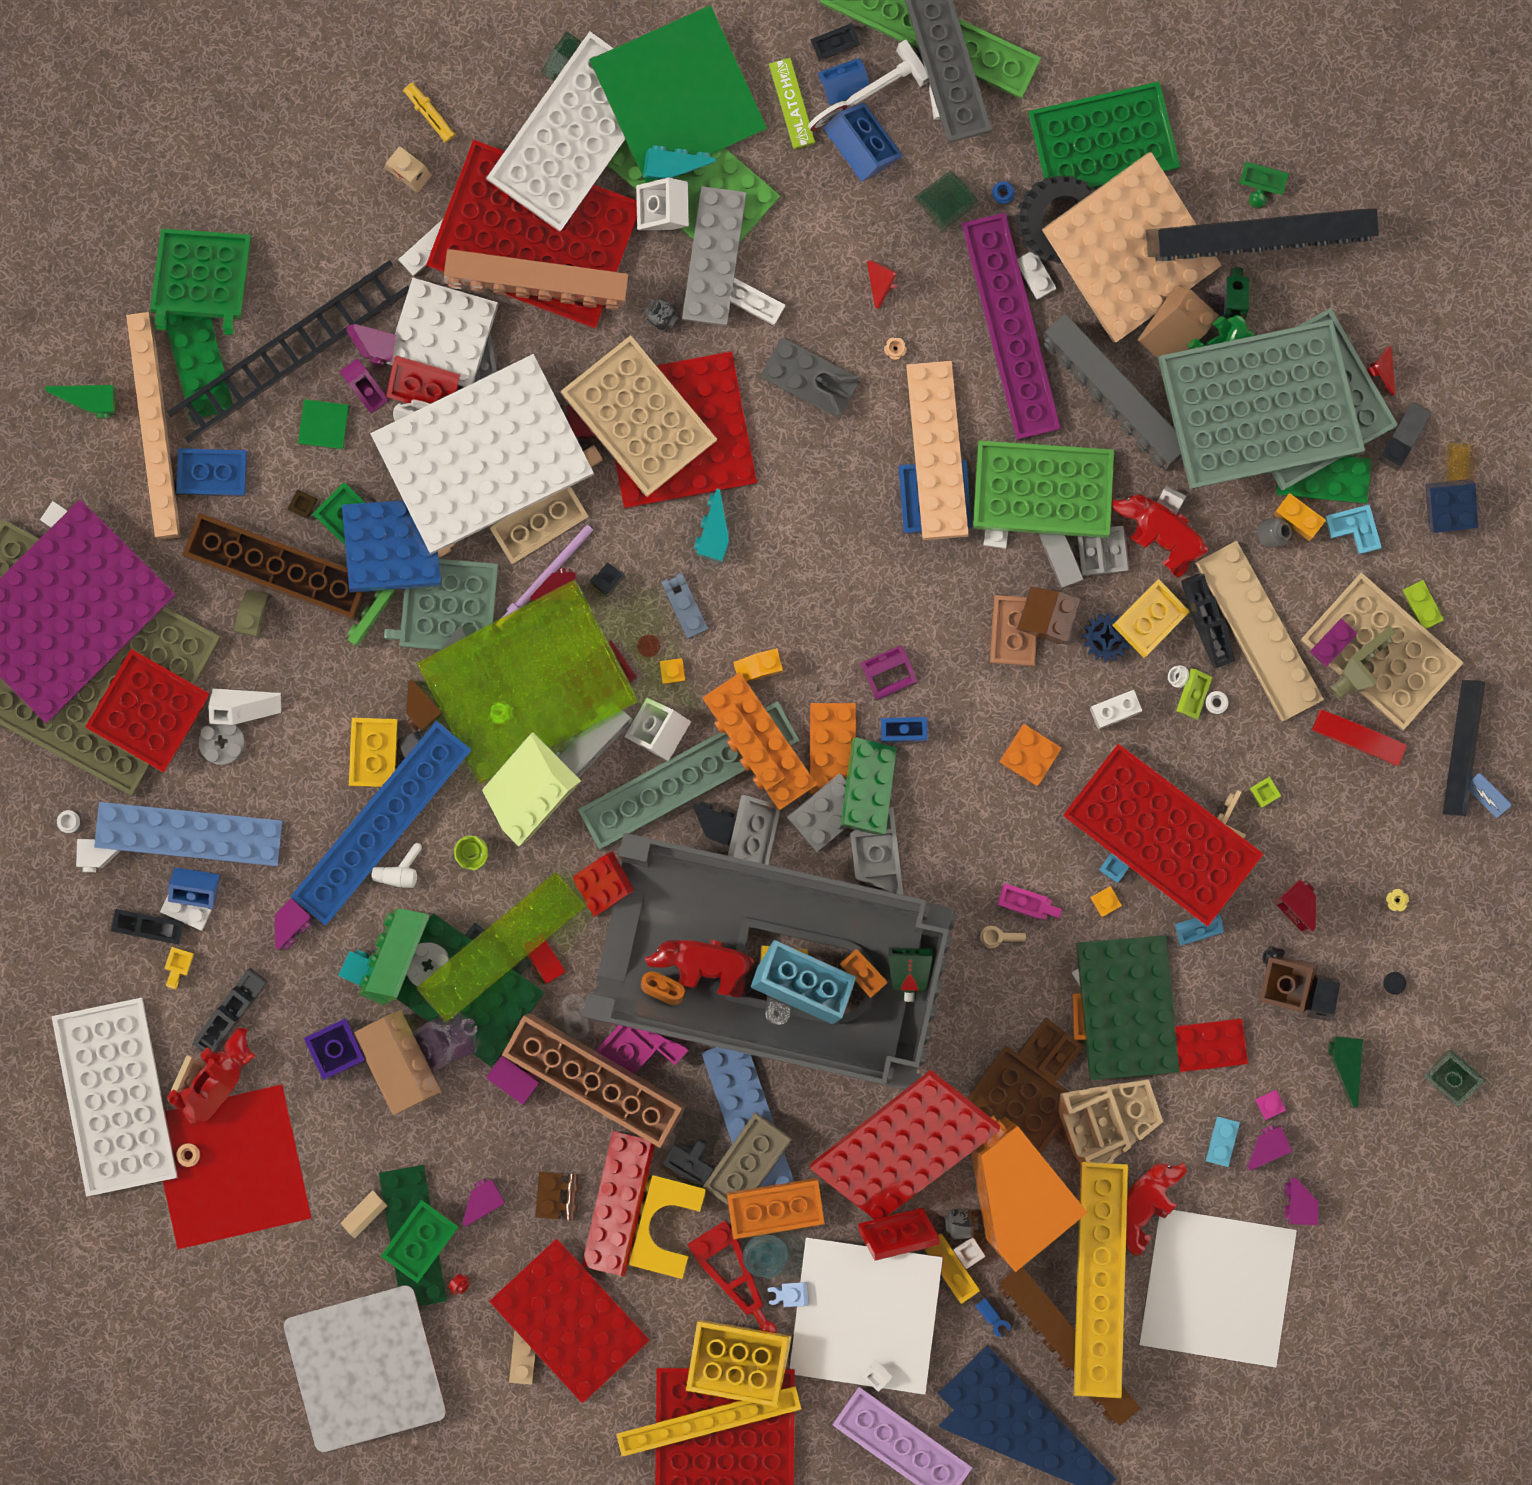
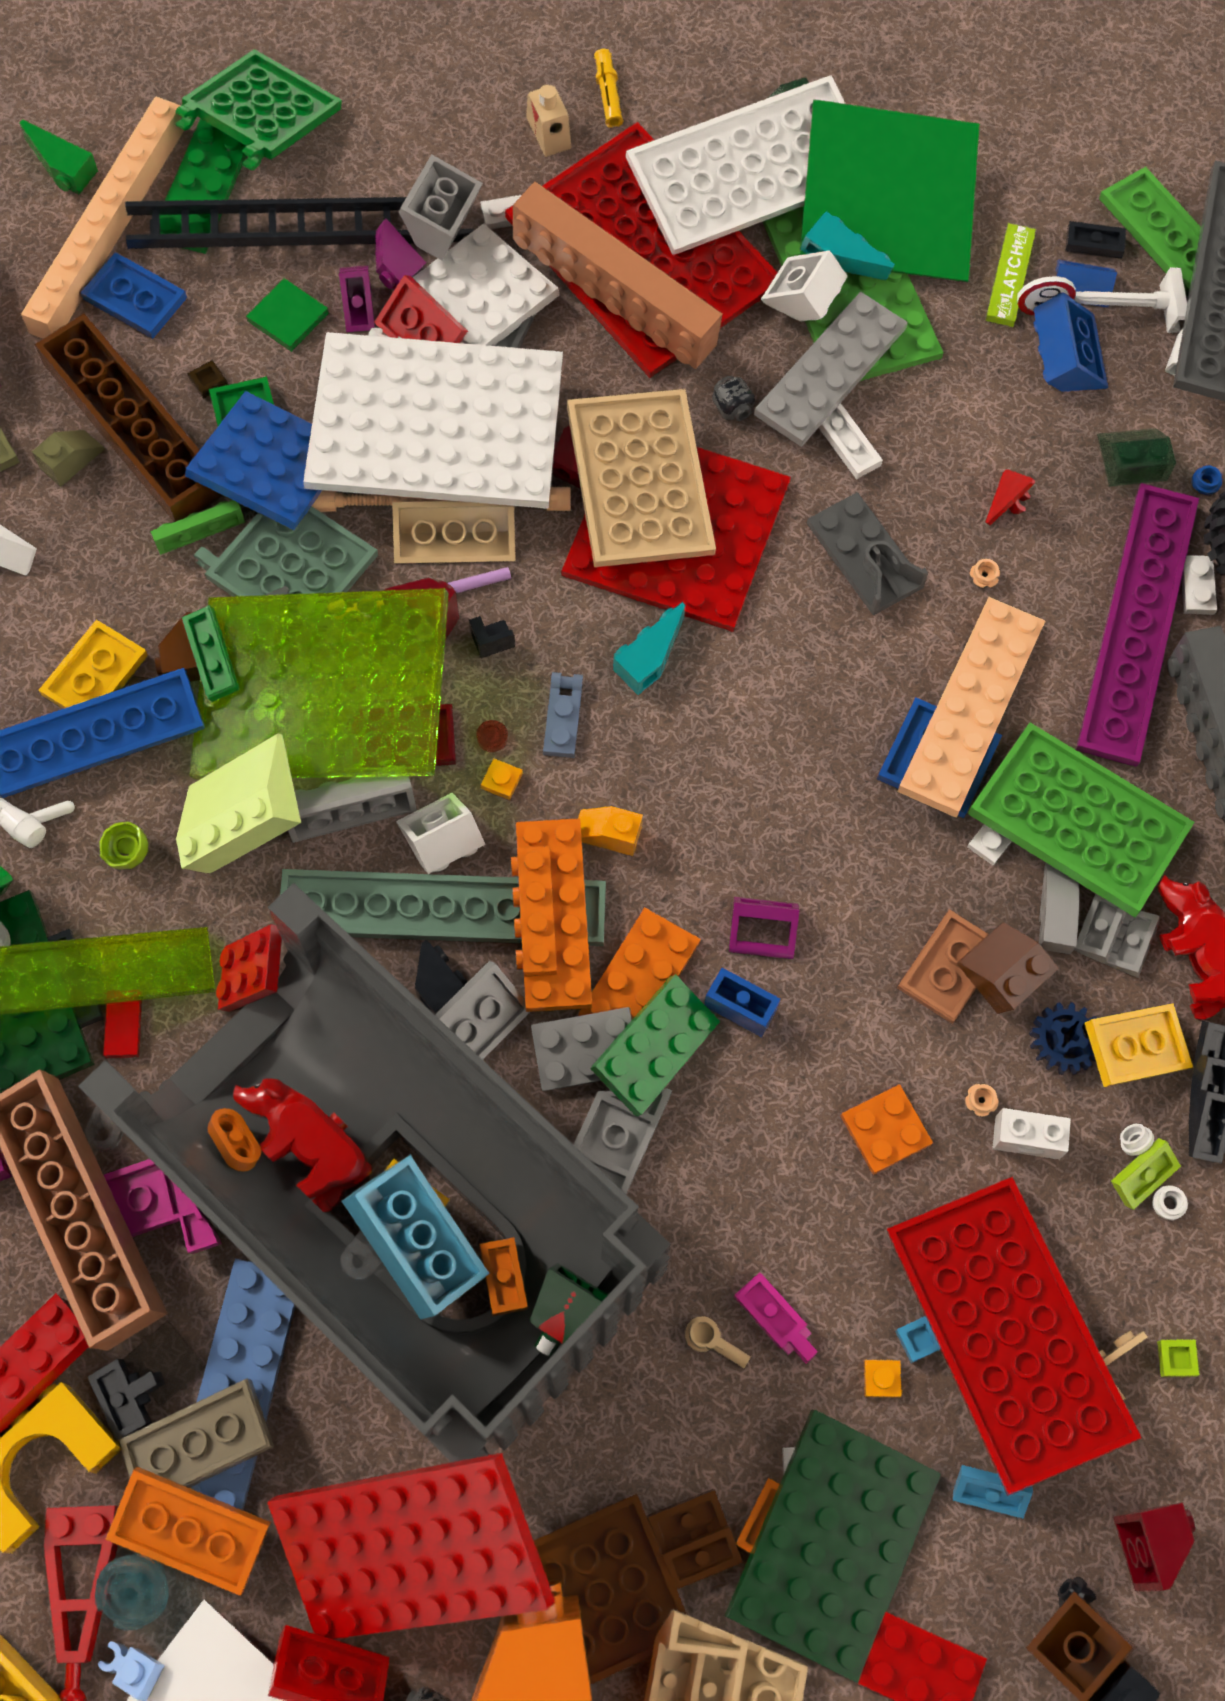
camera: 25 degrees right, 15 degrees down
(384, 292) = (438, 206): none -> light grey slope
(445, 700) = (210, 653): none -> green tile
(1071, 700) = (986, 1092): none -> light nougat plate

